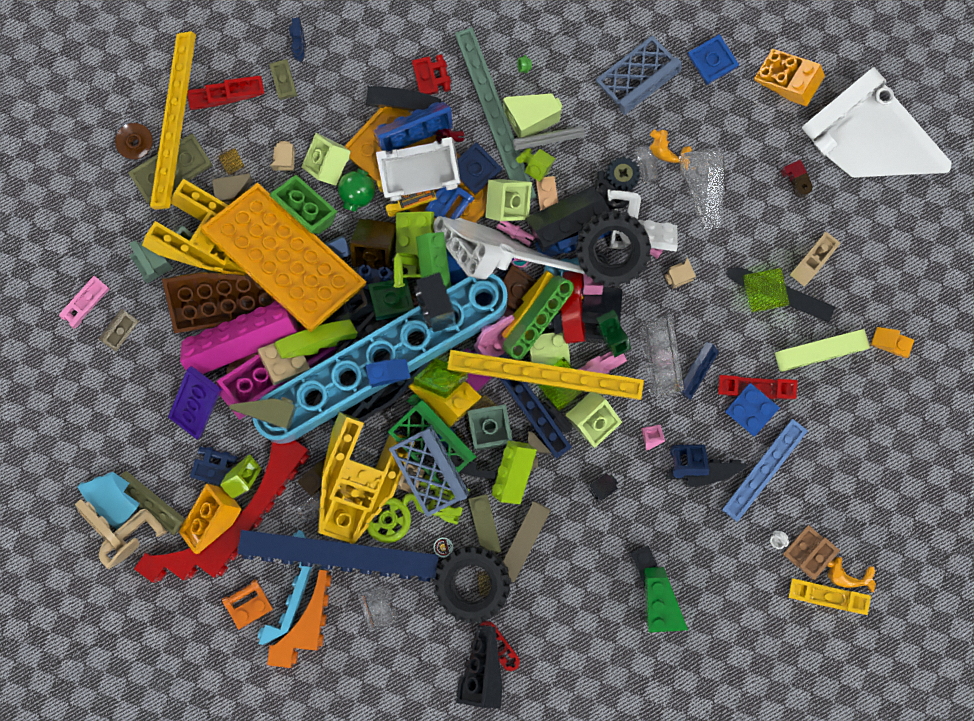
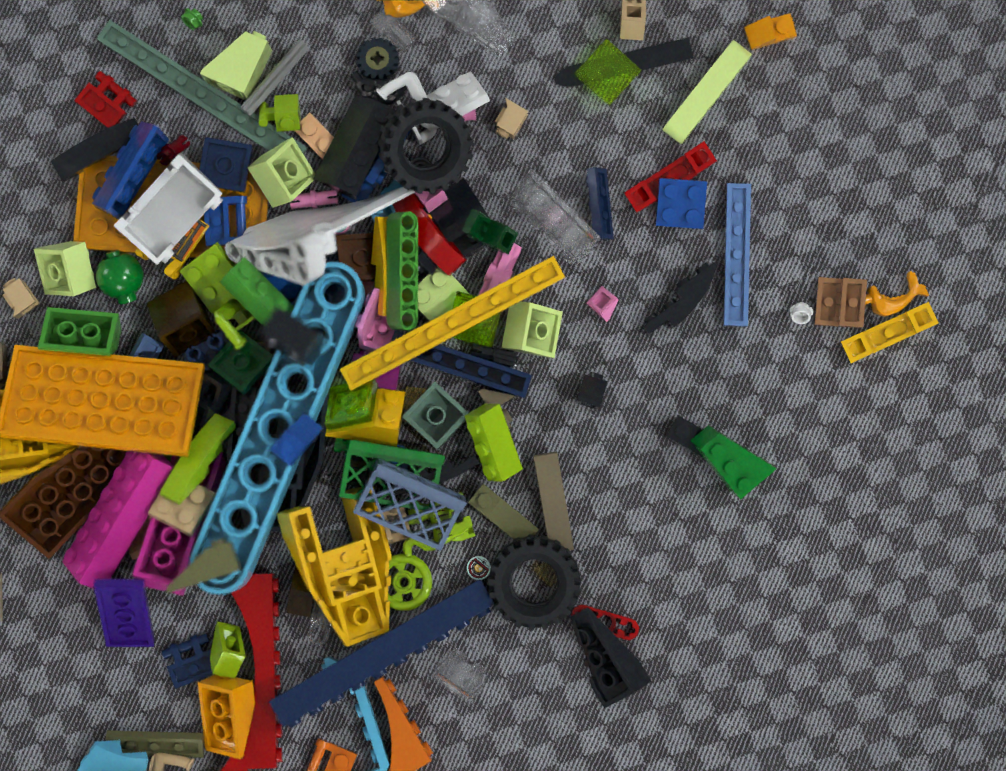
camera: 35 degrees left, 5 degrees up
(696, 460) = (662, 294): dark blue plate -> none

